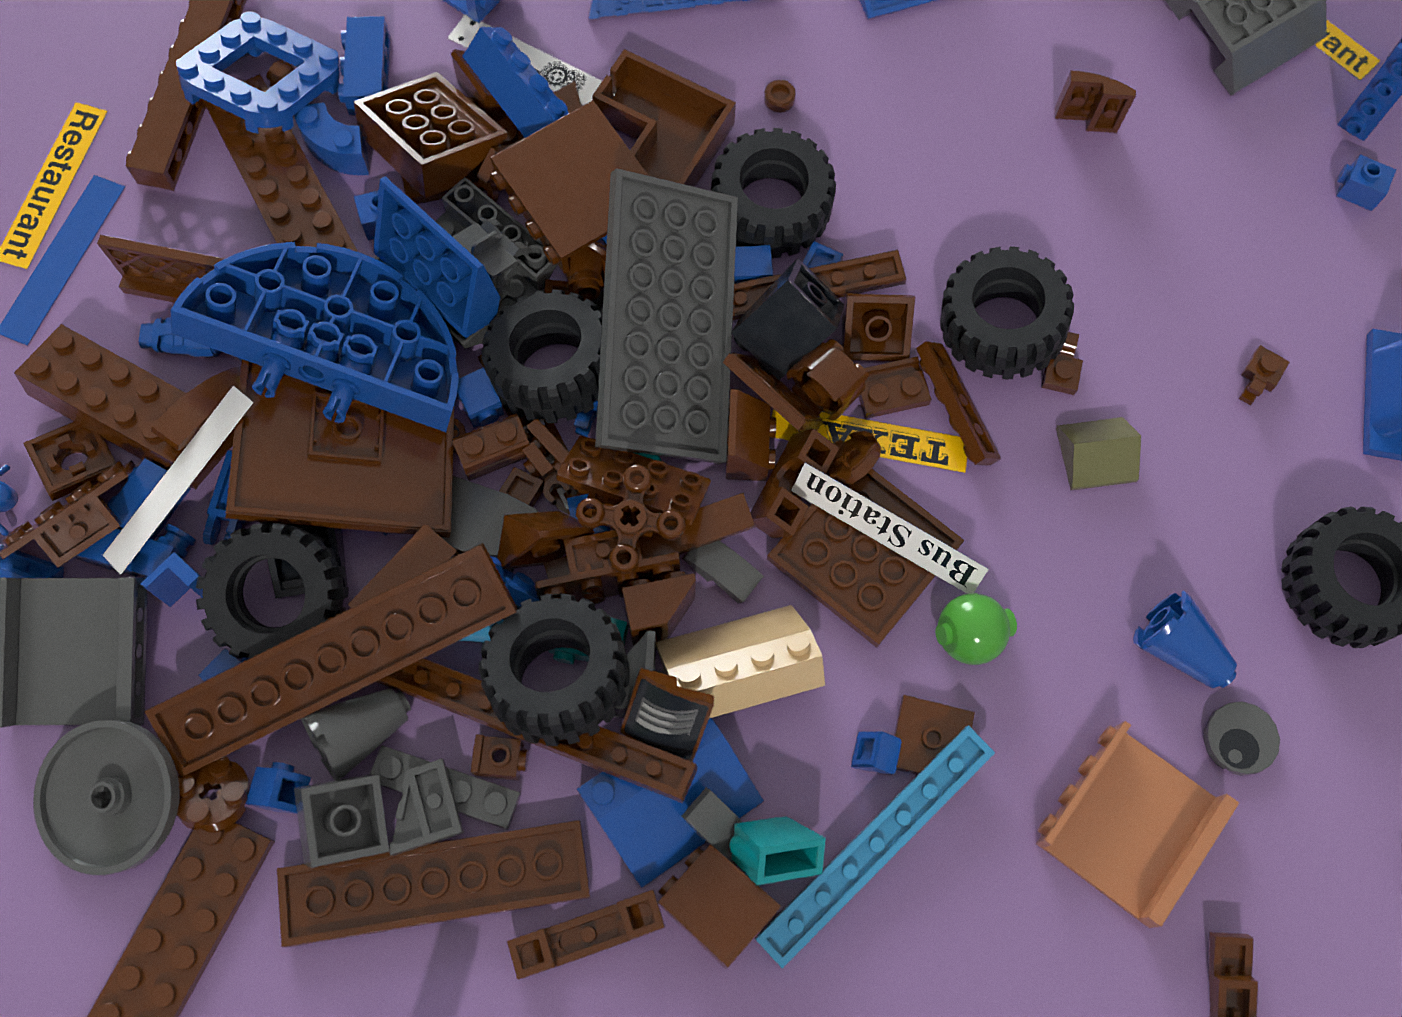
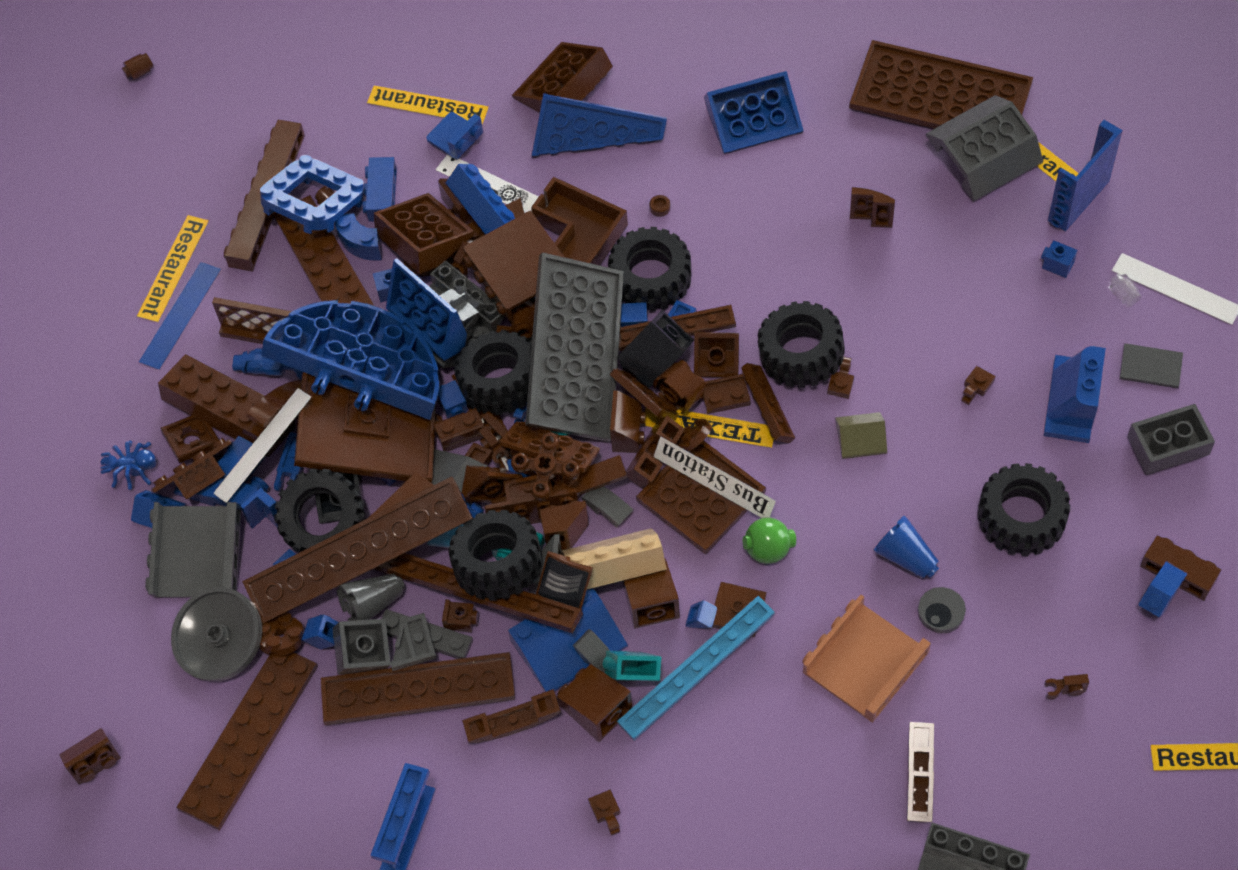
camera: 10 degrees right, 10 degrees down
(801, 727) = (652, 598): none -> reddish brown slope

